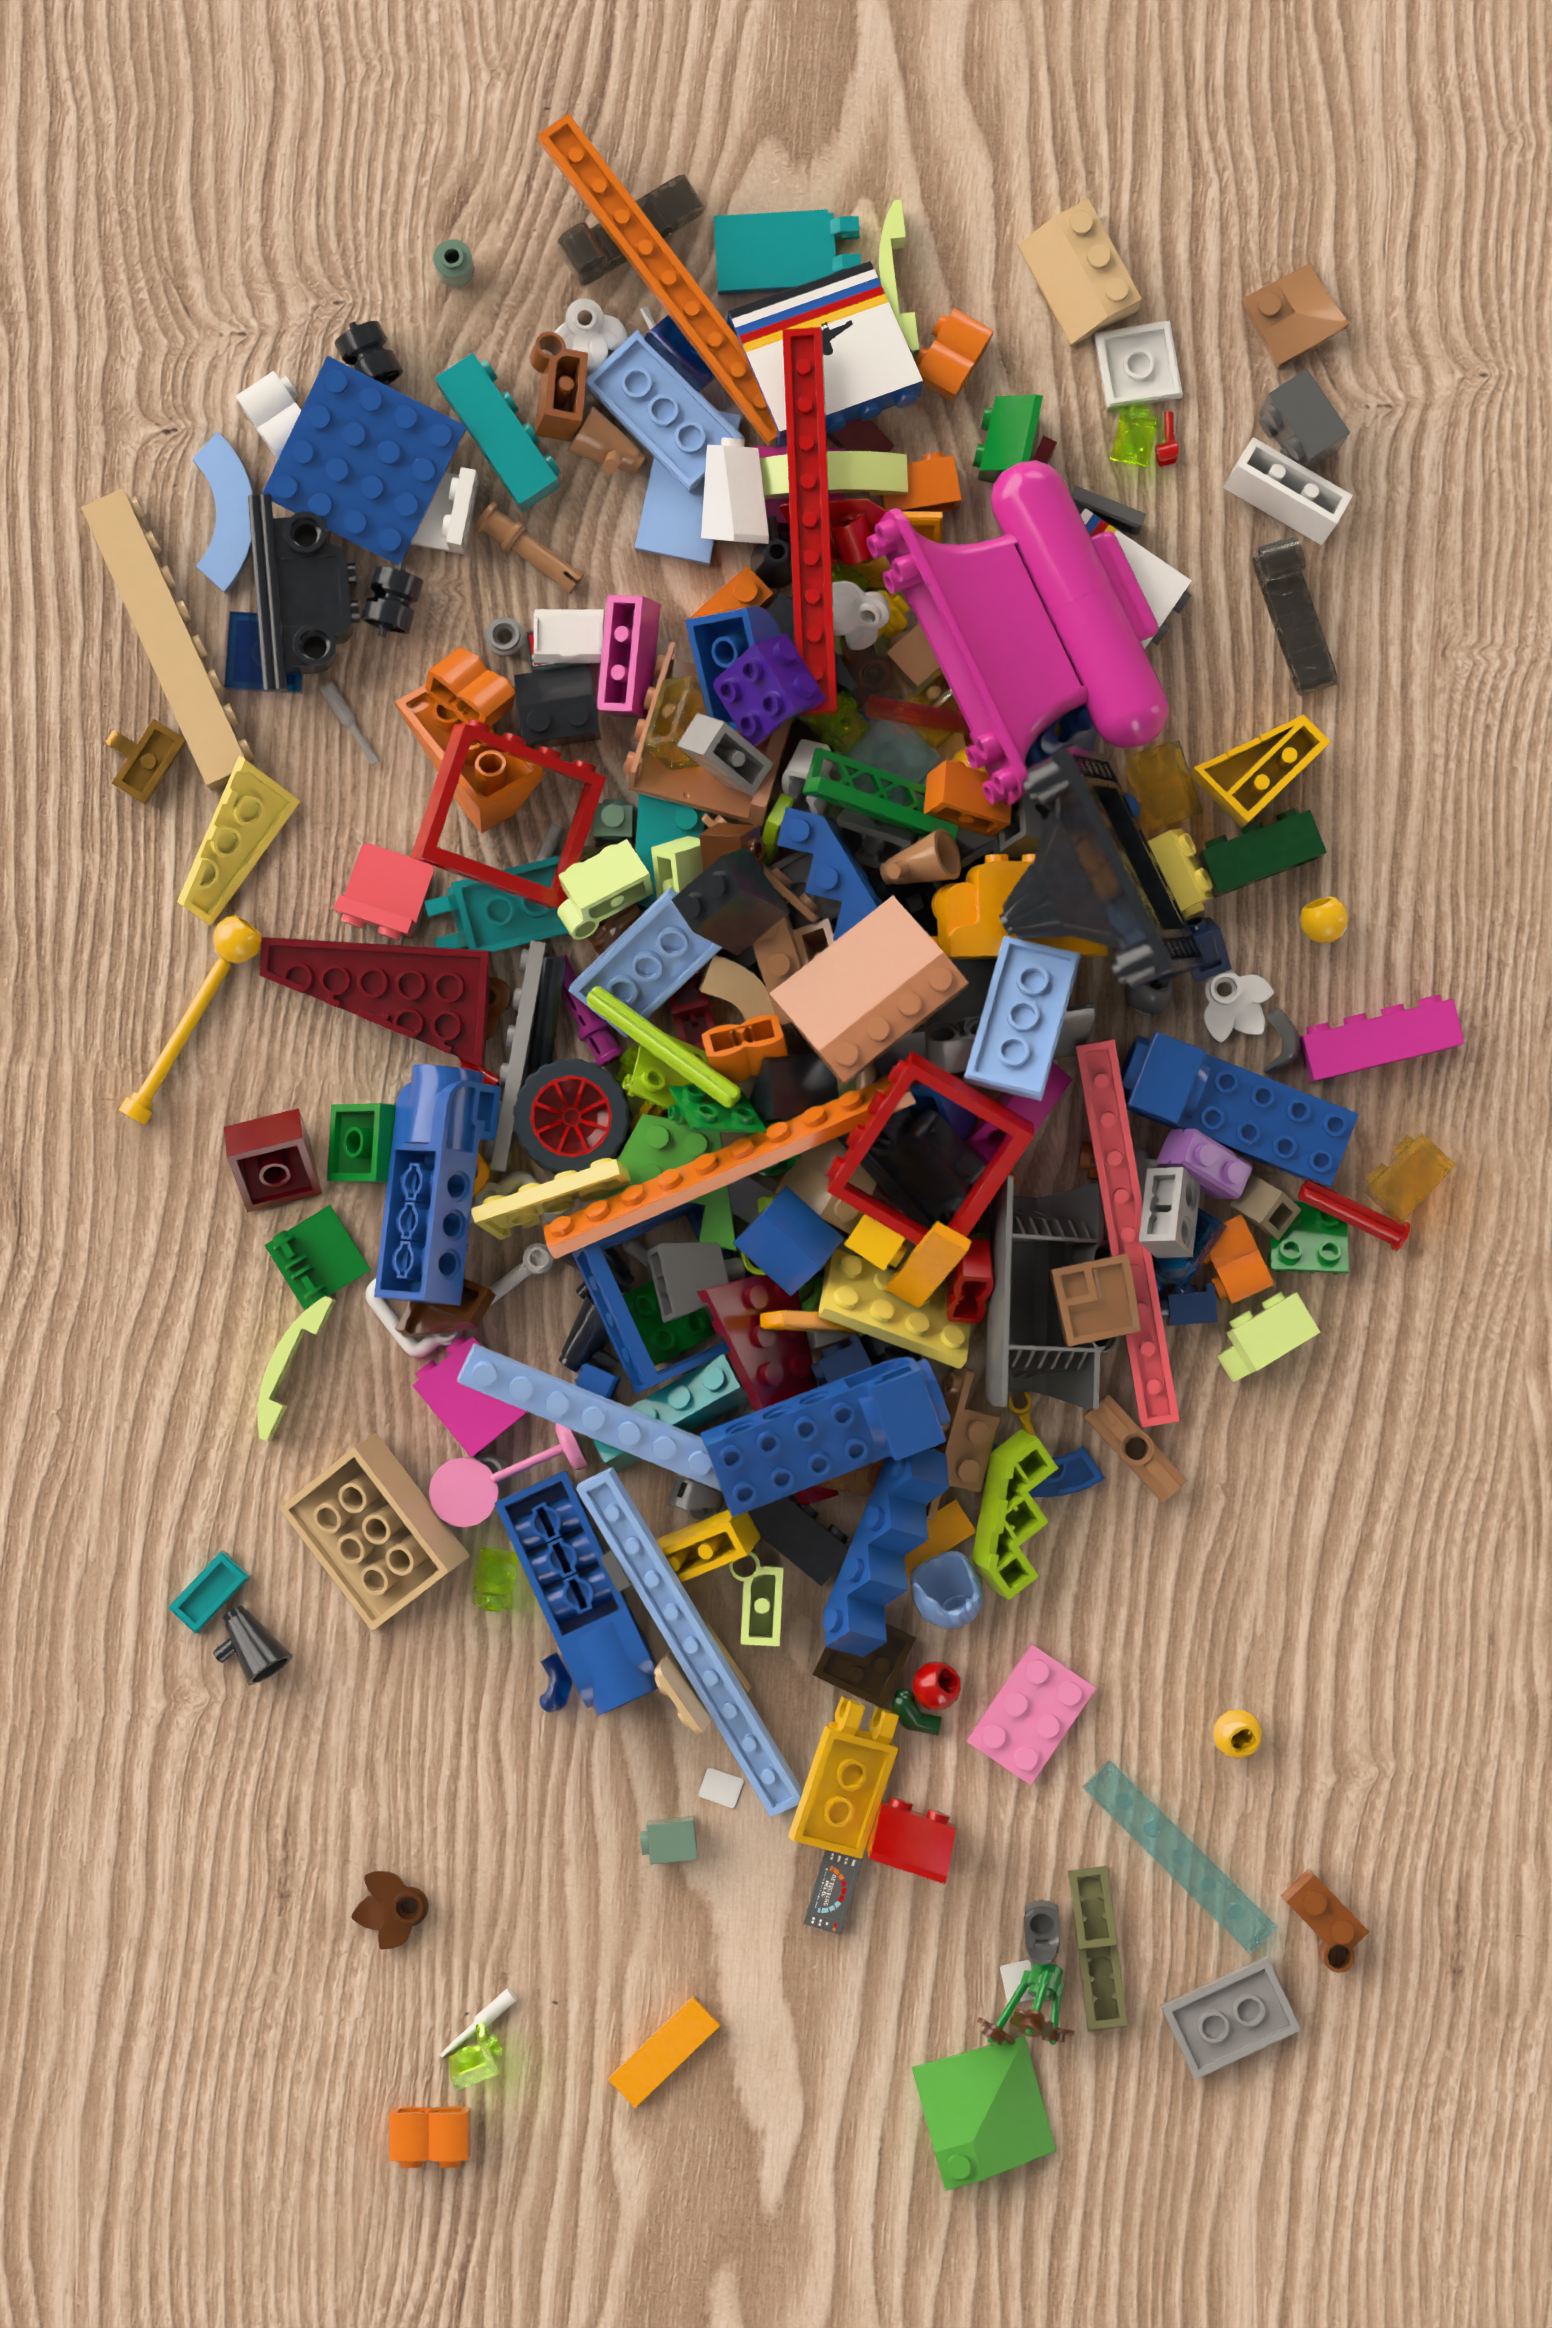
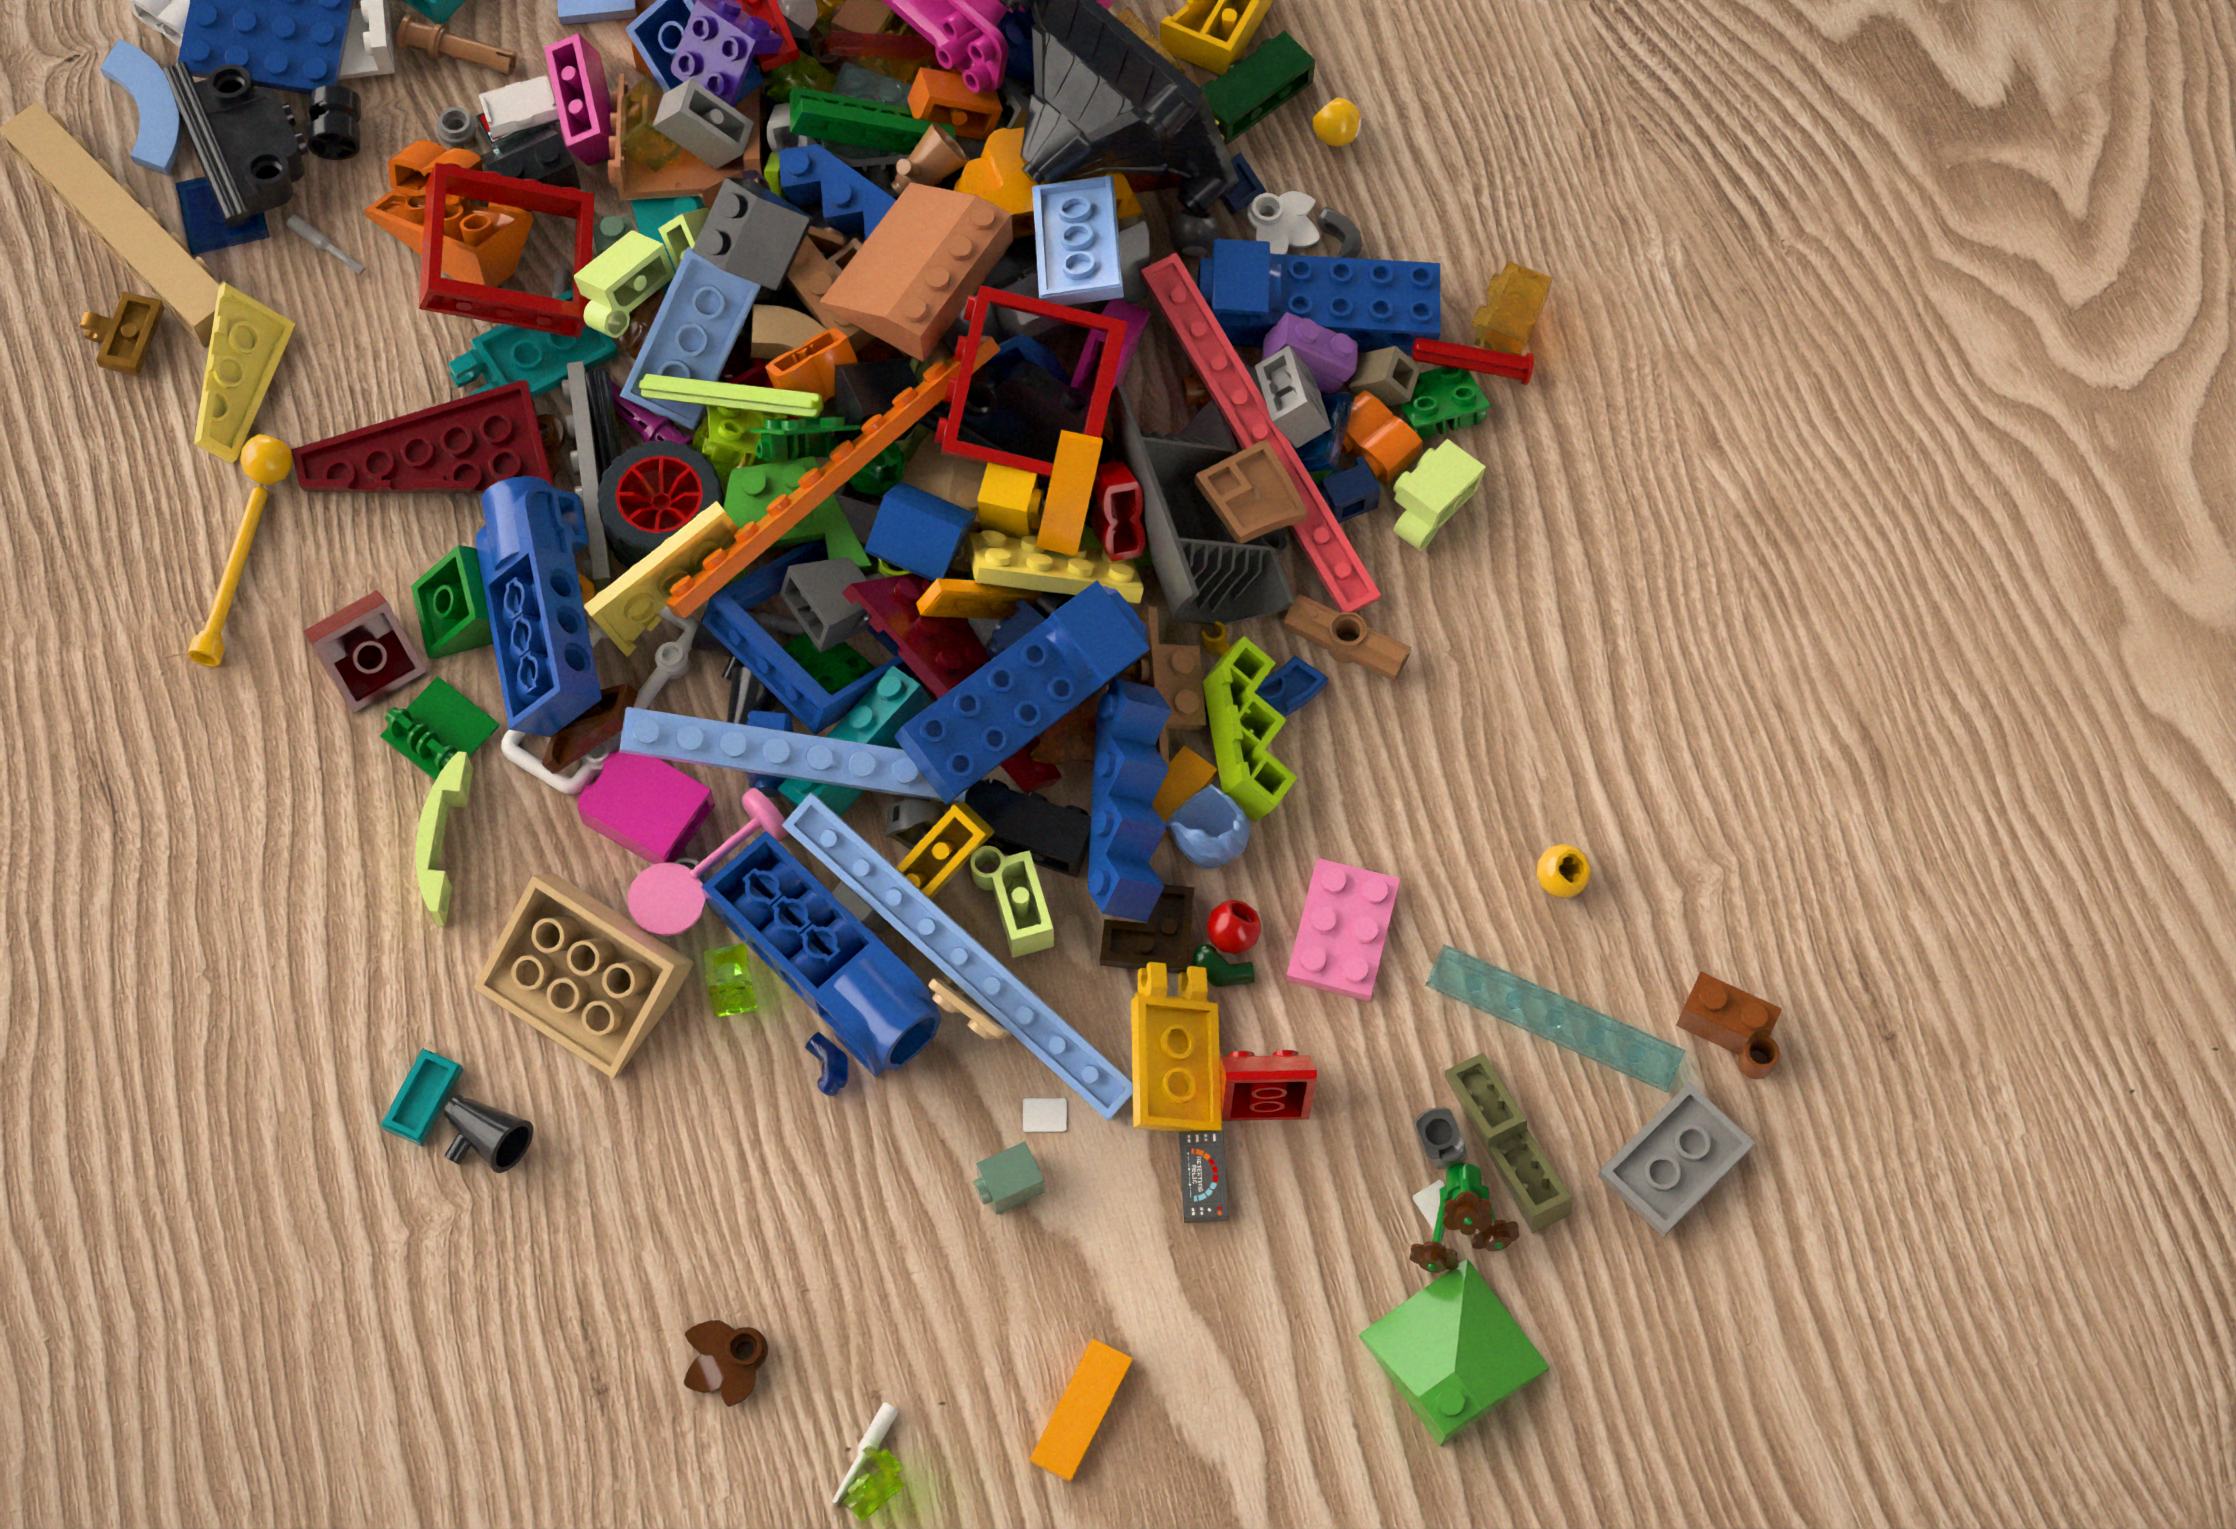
camera: 20 degrees left, 20 degrees down
(385, 892) = (405, 375): coral bracket -> none
(1380, 1040) = (1435, 205): dark pink brick -> none

